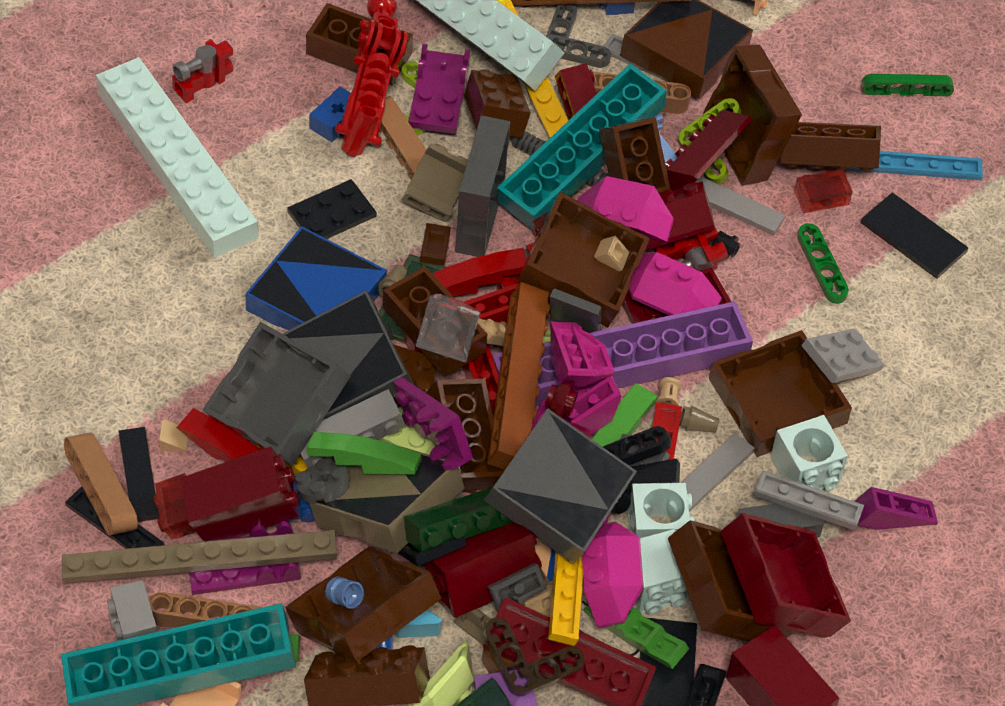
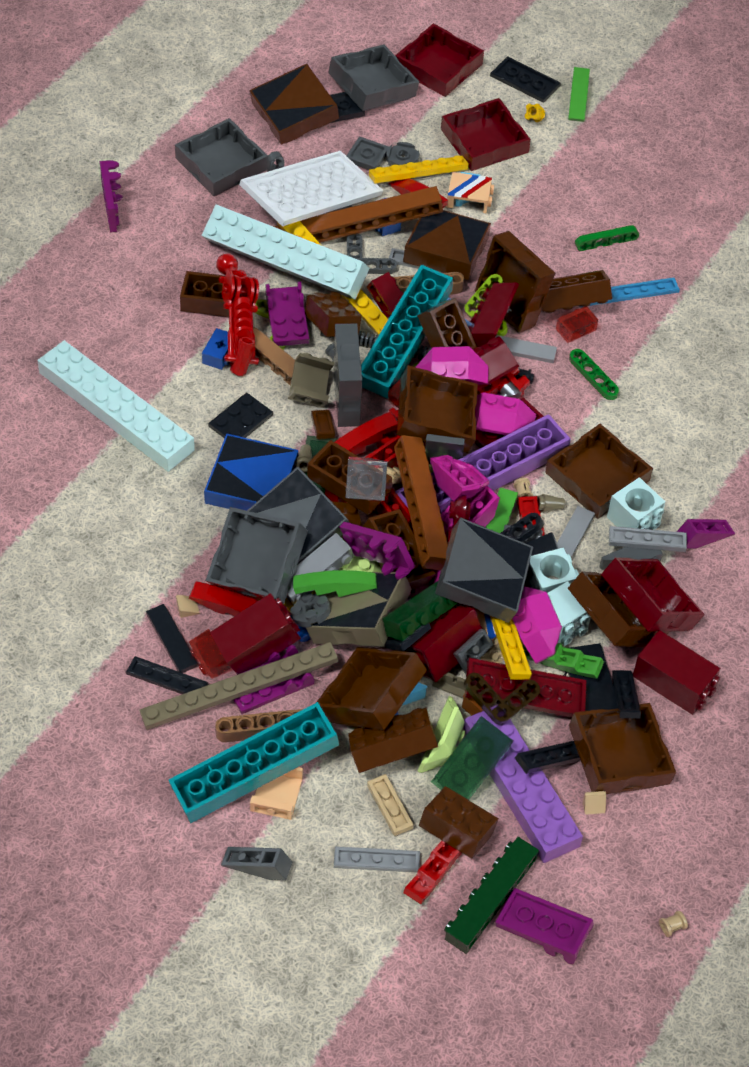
camera: 15 degrees left, 0 degrees up
(100, 483) = (148, 651): medium nougat beam -> none
(130, 611) = (207, 737): light grey brick -> none
(203, 71) = (113, 340): red hips -> none
(344, 592) = (352, 684): medium blue wheel -> none
(612, 253) = (453, 400): tan slope -> none
(843, 355) = (633, 434): light grey plate -> none
(914, 235) = (648, 340): black tile -> none

